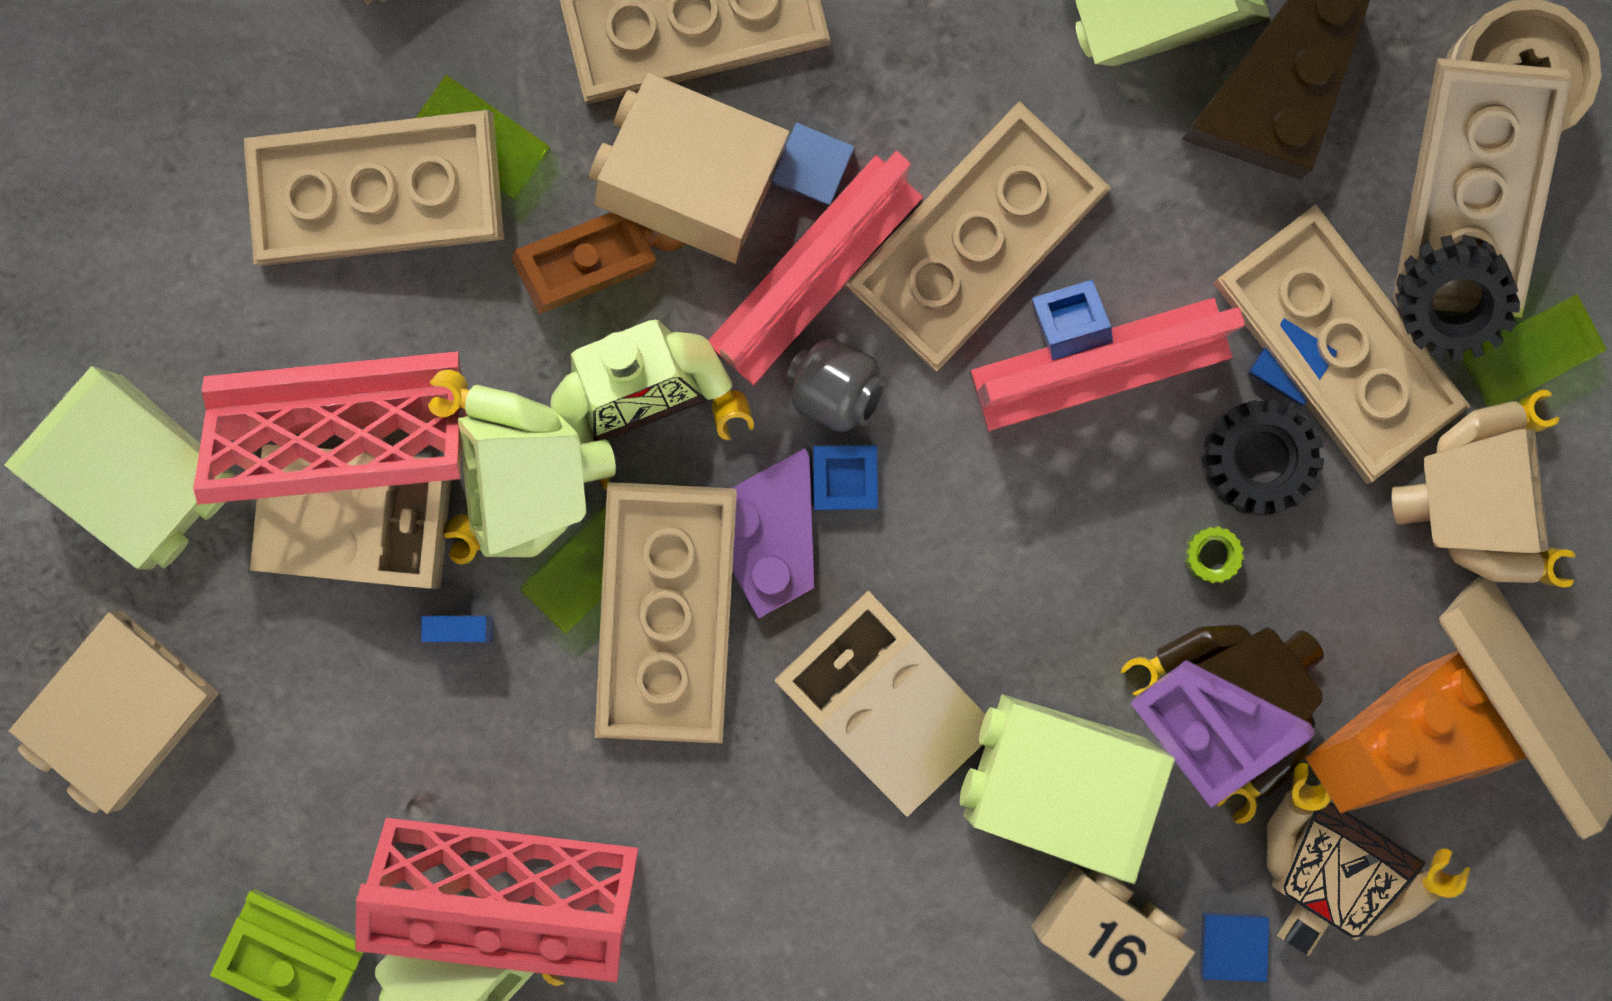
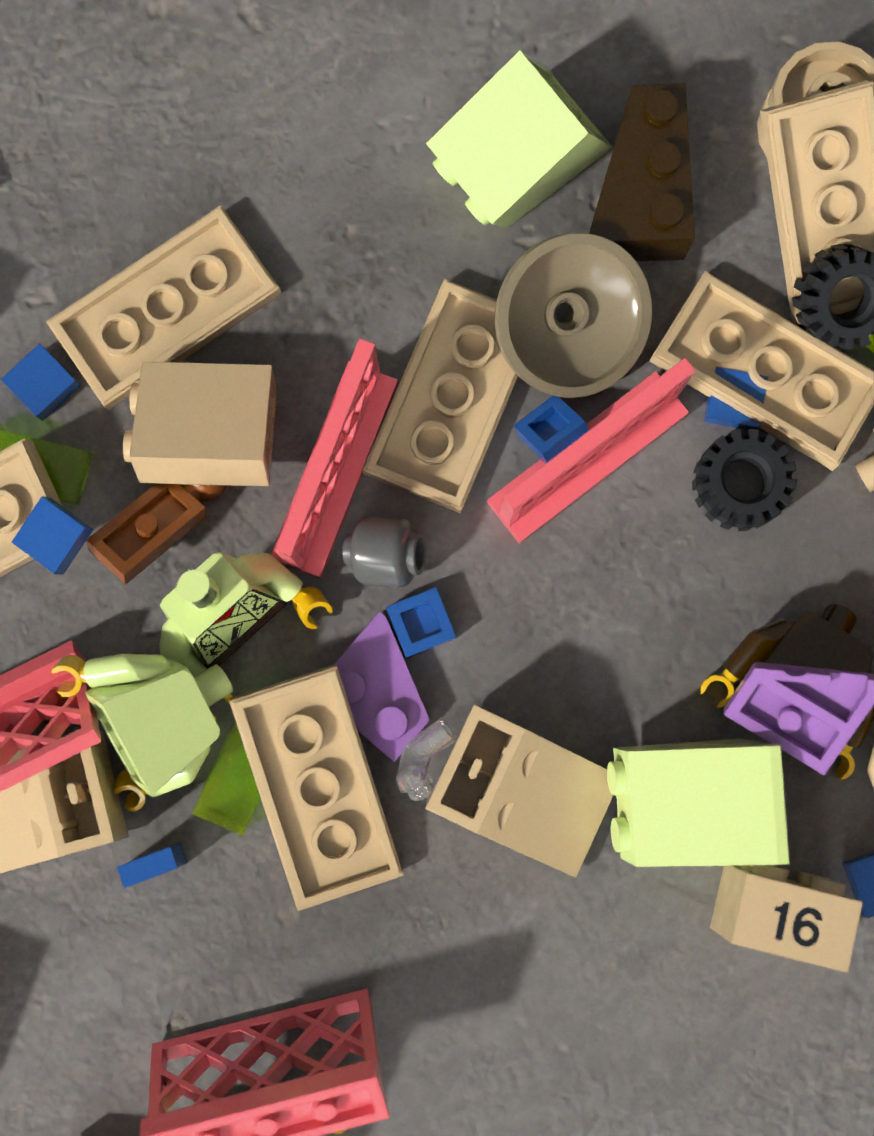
camera: 20 degrees left, 5 degrees down
(481, 232) = (52, 535): none -> blue tile
(523, 45) = (40, 382): none -> blue tile
(783, 624) = (416, 757): none -> clear arm
(812, 165) = (302, 388): medium blue tile -> none
(1165, 233) = (604, 321): none -> dark tan dish
(1233, 560) = (752, 567): lime axle -> none

